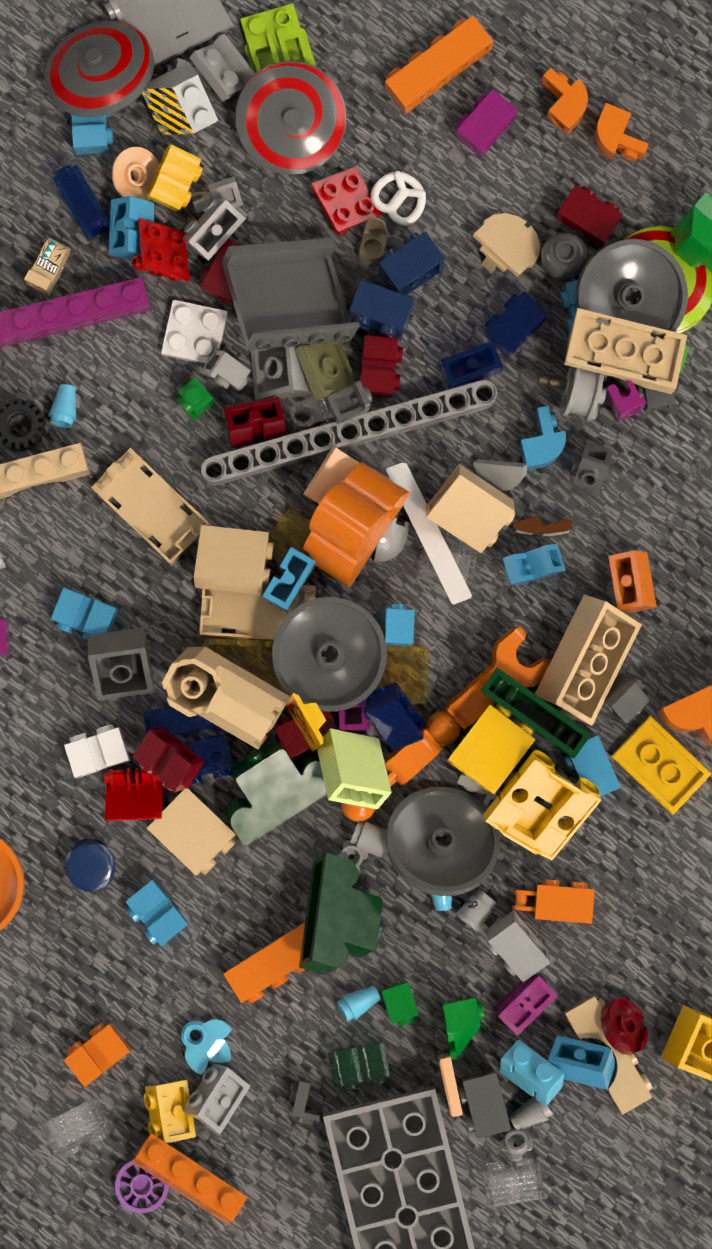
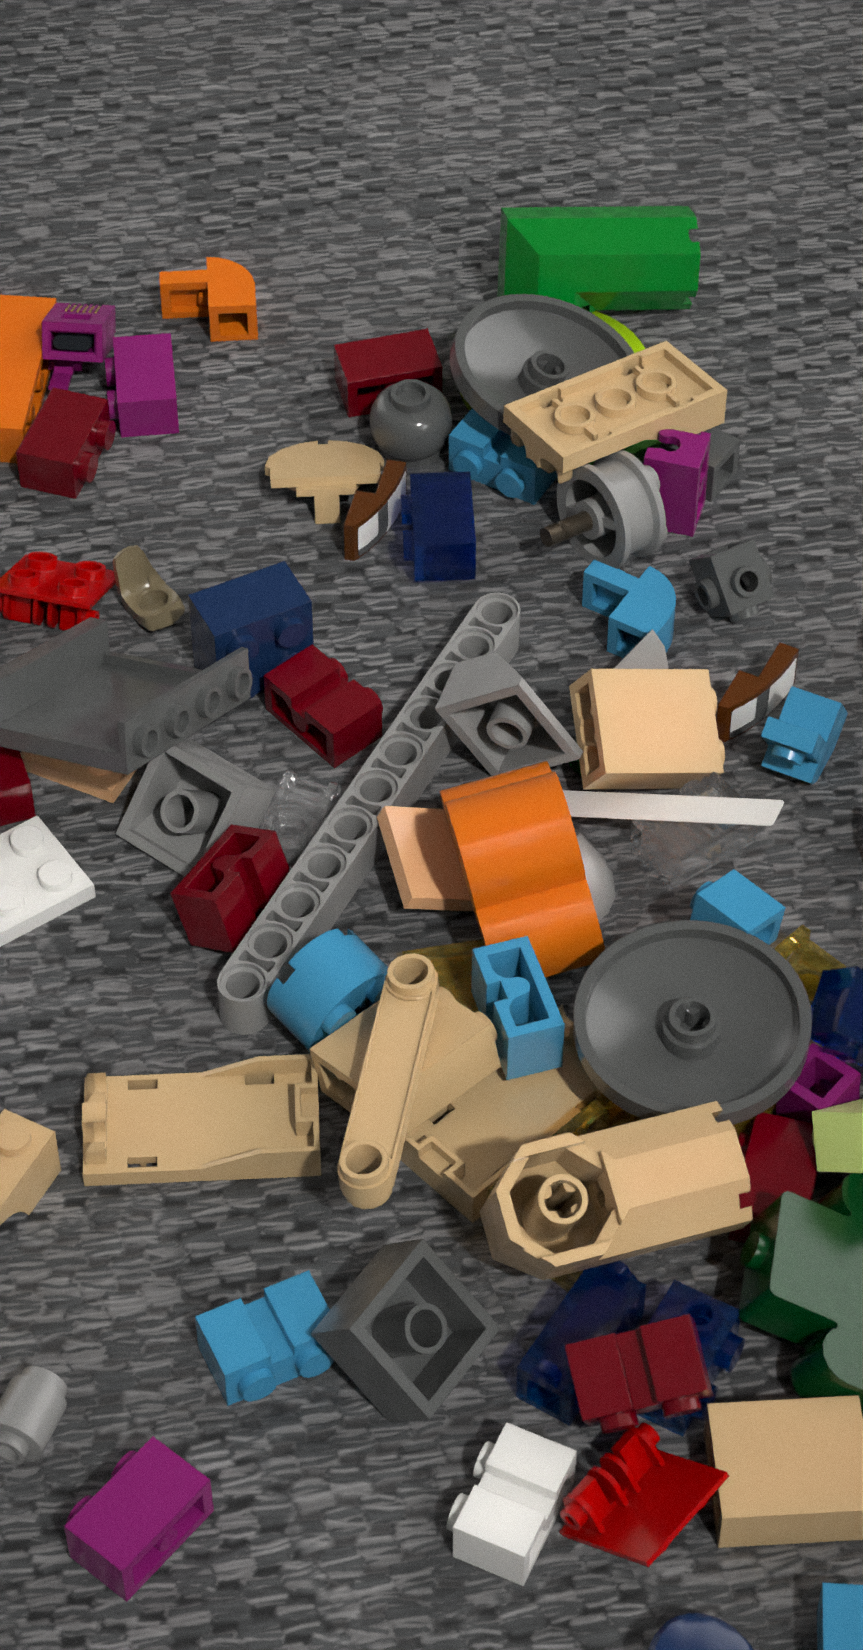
camera: 45 degrees left, 35 degrees down
(195, 399) = (113, 938): green brick -> none
(202, 573) = (388, 1082): none -> tan piece
(225, 370) = (118, 867): light grey brick -> none
(239, 506) = (330, 986): none -> dark azure brick
(308, 719) = (778, 1121): yellow piece -> none
(325, 368) = (259, 751): olive tile -> none
(349, 402) = (340, 742): dark grey bracket -> none
(399, 197) = (123, 529): white piece -> none
(411, 264) = (231, 539): dark blue brick -> none
(422, 124) = (65, 443): none -> dark red brick
(427, 449) = (502, 717): none -> light grey slope
(471, 365) = (440, 600): clear blue brick -> none
(481, 71) = (76, 336): none -> magenta piece
(496, 289) = (374, 513): none -> reddish brown slope
(611, 136) = (319, 290): orange brick -> none

